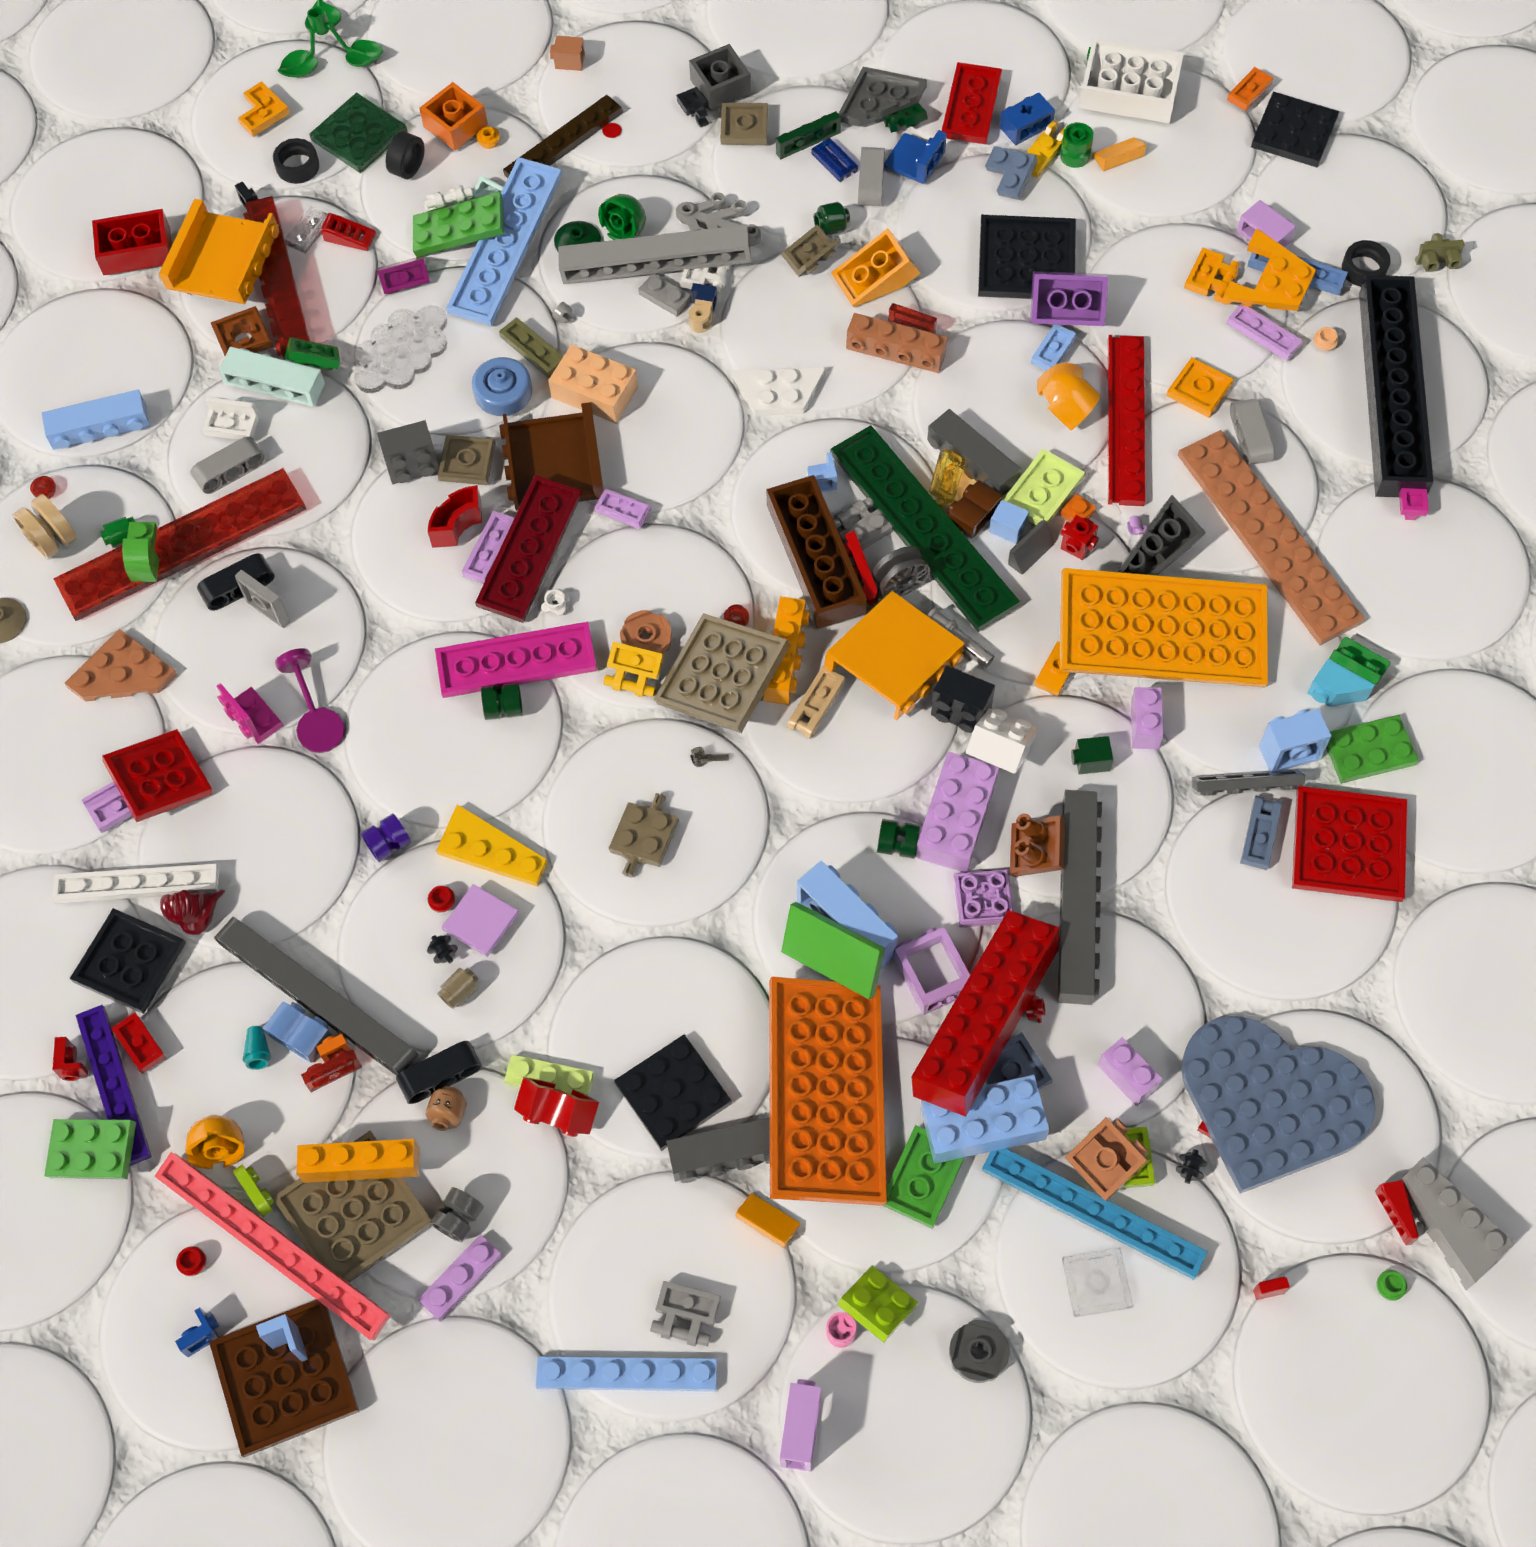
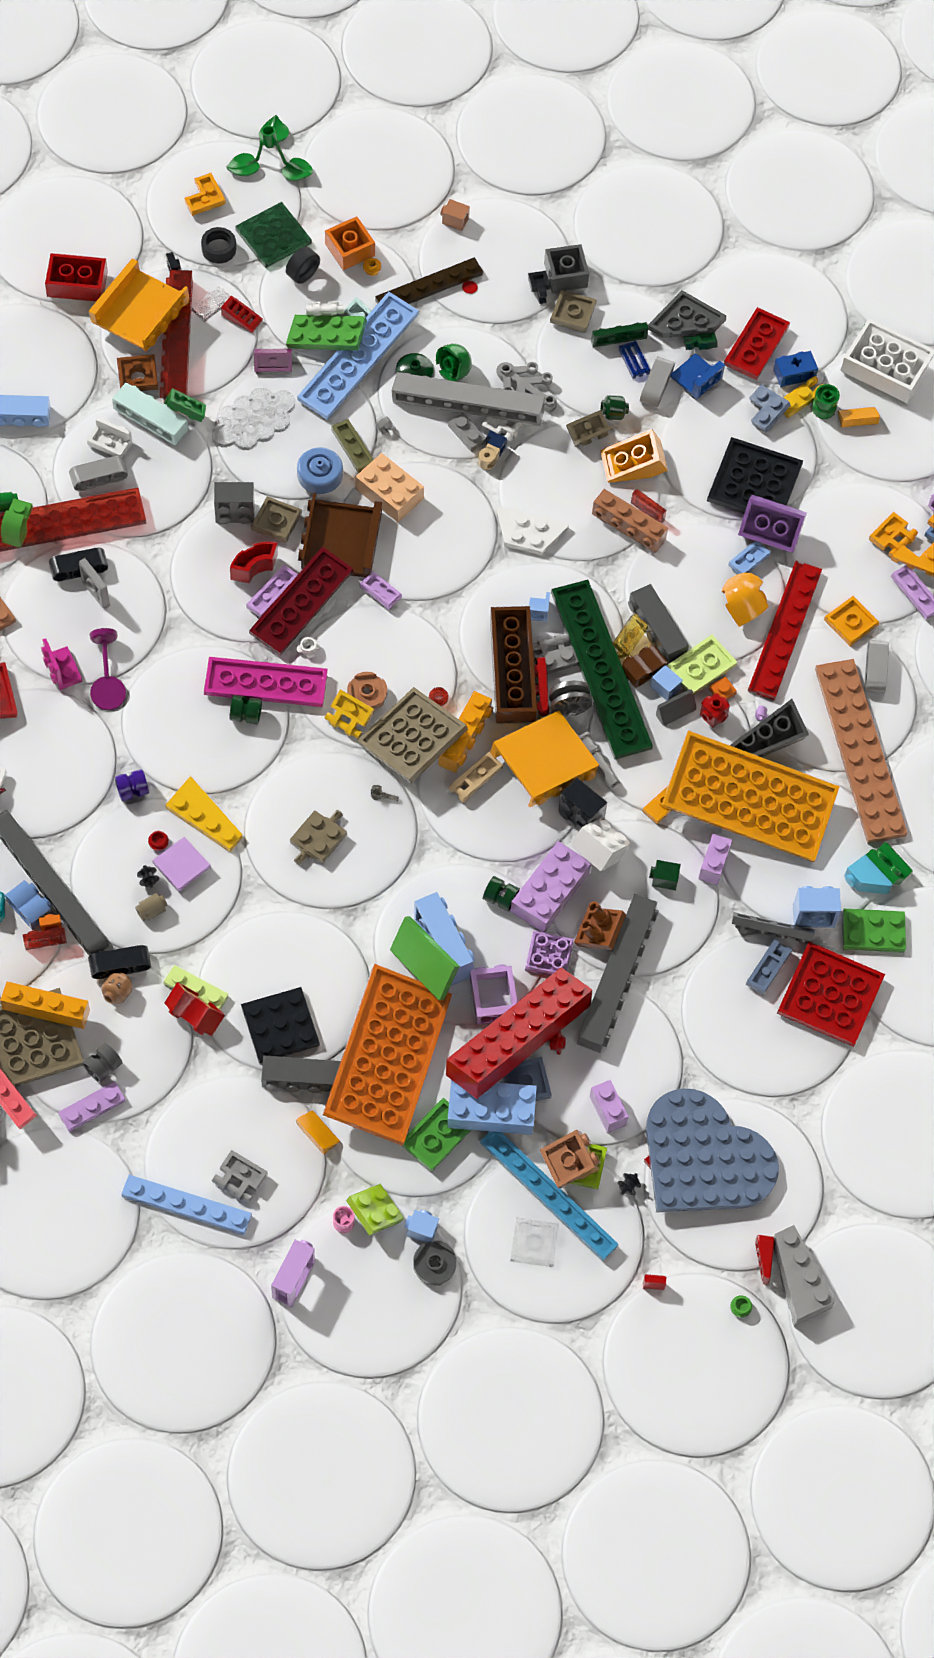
camera: 10 degrees right, 0 degrees up
(946, 1306) = (422, 1226): none -> light blue brick

